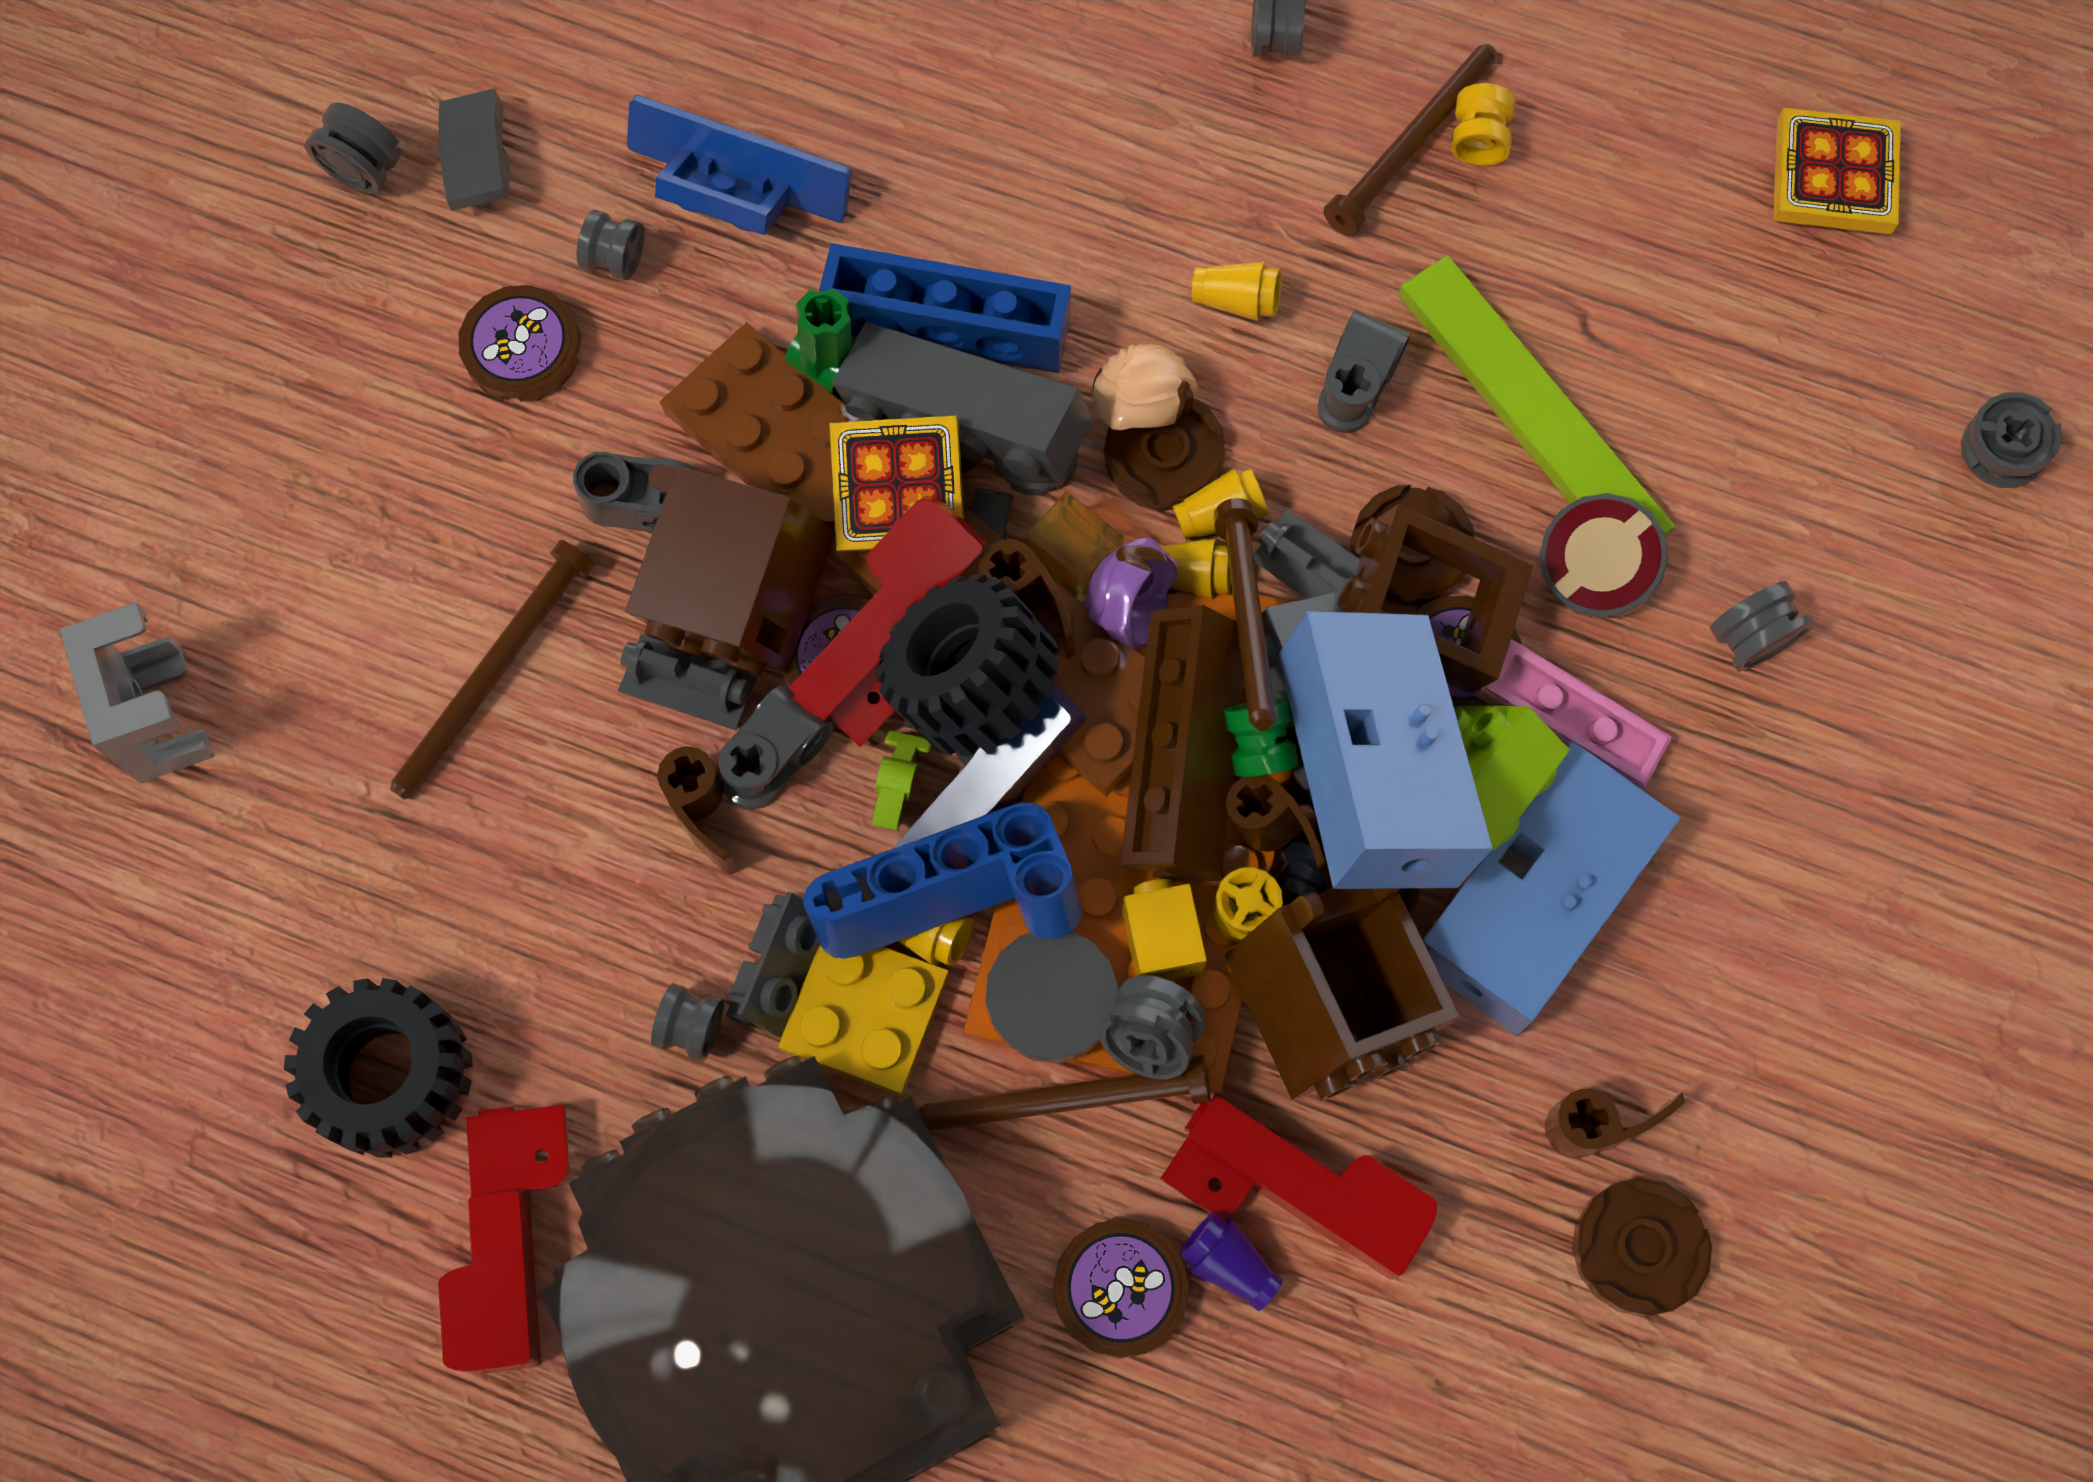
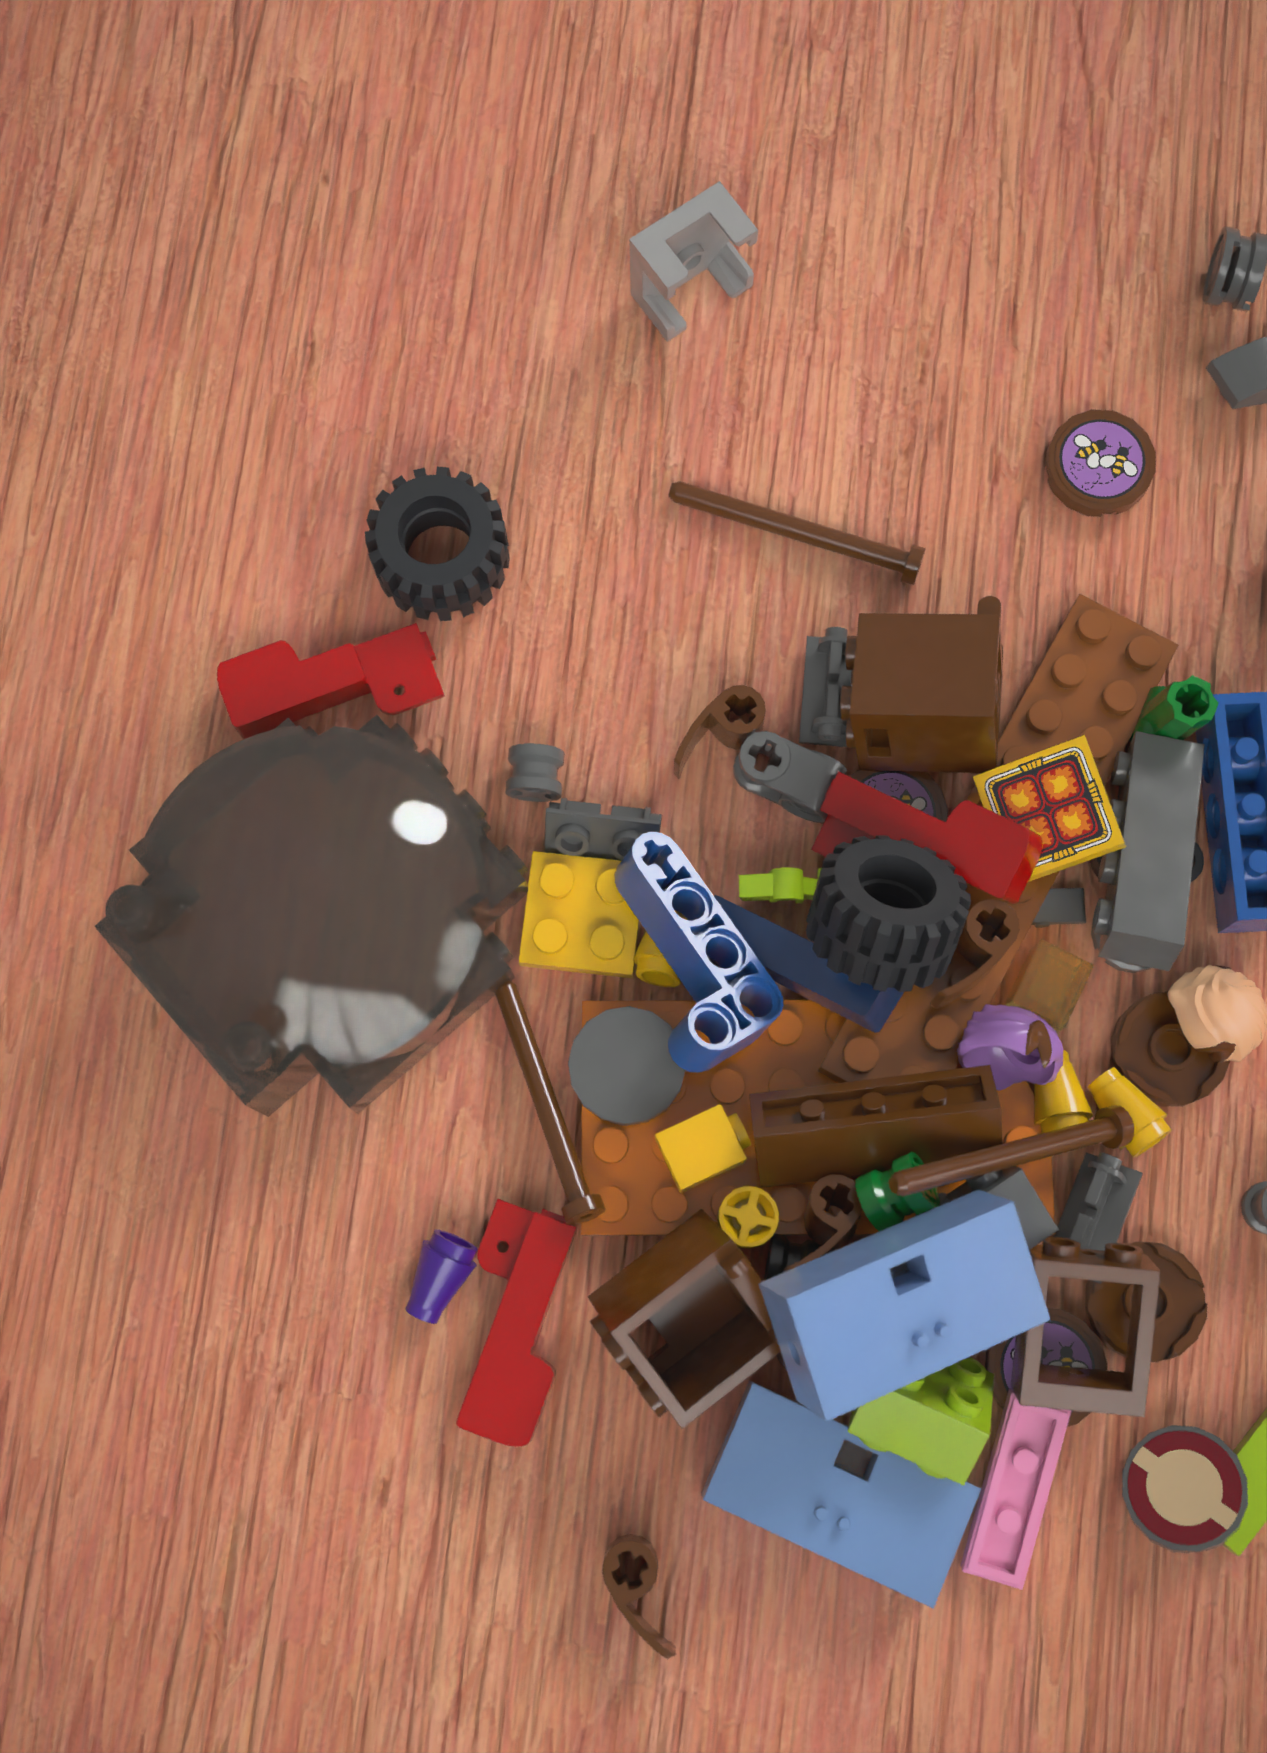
camera: 80 degrees right, 5 degrees up
(610, 245) = (1215, 508): dark grey wheel -> none
(635, 501) = (972, 589): dark grey piece -> none
(1120, 1288) = (399, 1186): tile -> none
(1152, 1028) = (613, 1157): dark grey wheel -> none
(1642, 1247) = (536, 1644): reddish brown tile -> none
(1761, 626) = (1156, 1660): dark grey wheel -> none

